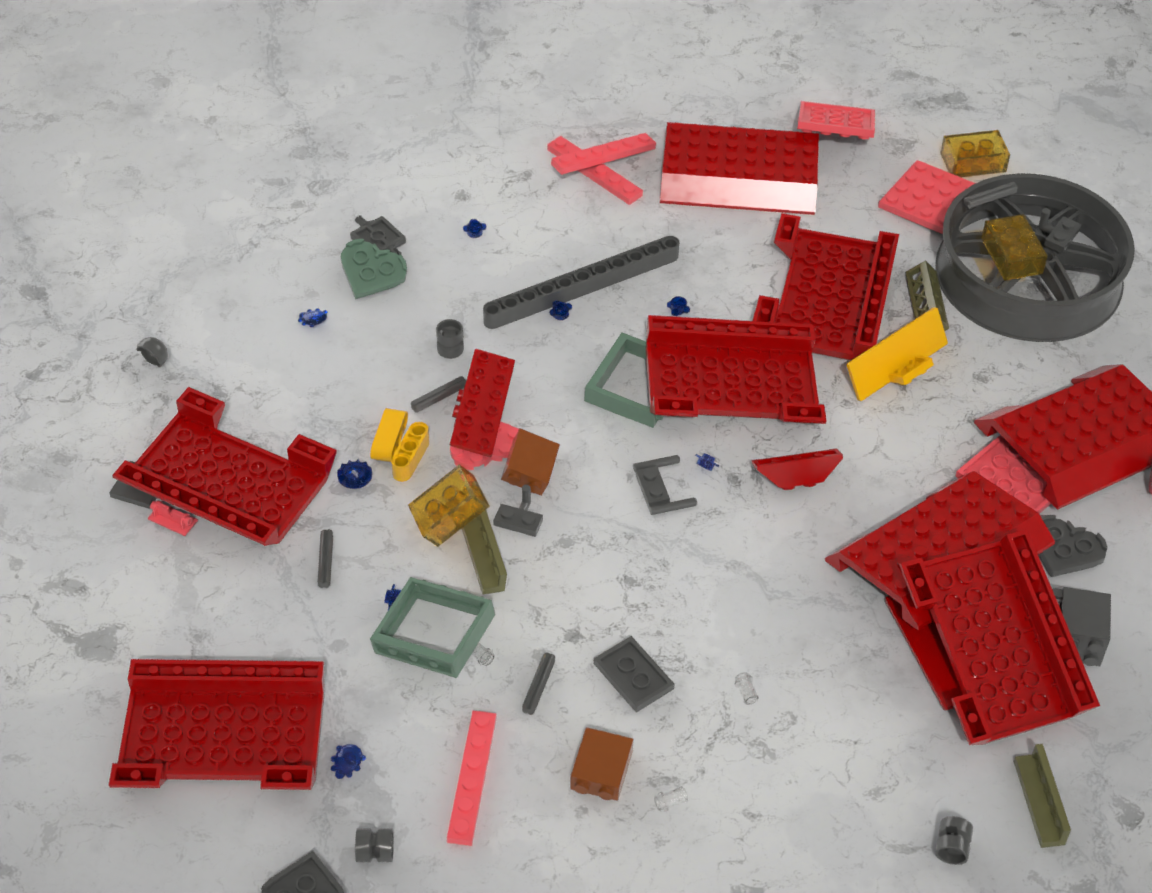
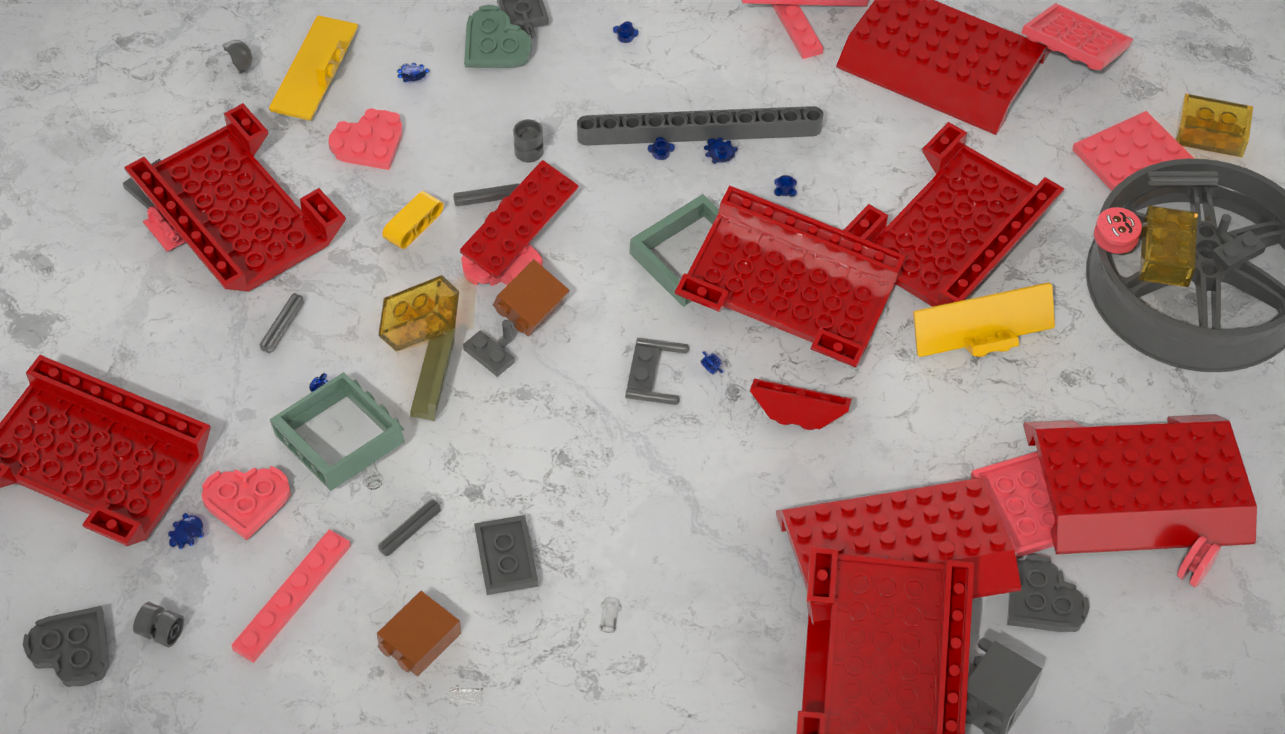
camera: 25 degrees right, 5 degrees up
(224, 341) = (313, 68): none -> yellow bracket
(308, 385) = (369, 141): none -> coral plate
(349, 480) = (366, 252): clear blue gear -> none
(383, 714) = (245, 499): none -> coral plate
(410, 451) = (423, 244): yellow beam -> none
(608, 296) = (720, 150): none -> clear blue piece
(930, 292) = (1066, 267): olive fence -> none
(969, 248) = (1117, 230): none -> coral head

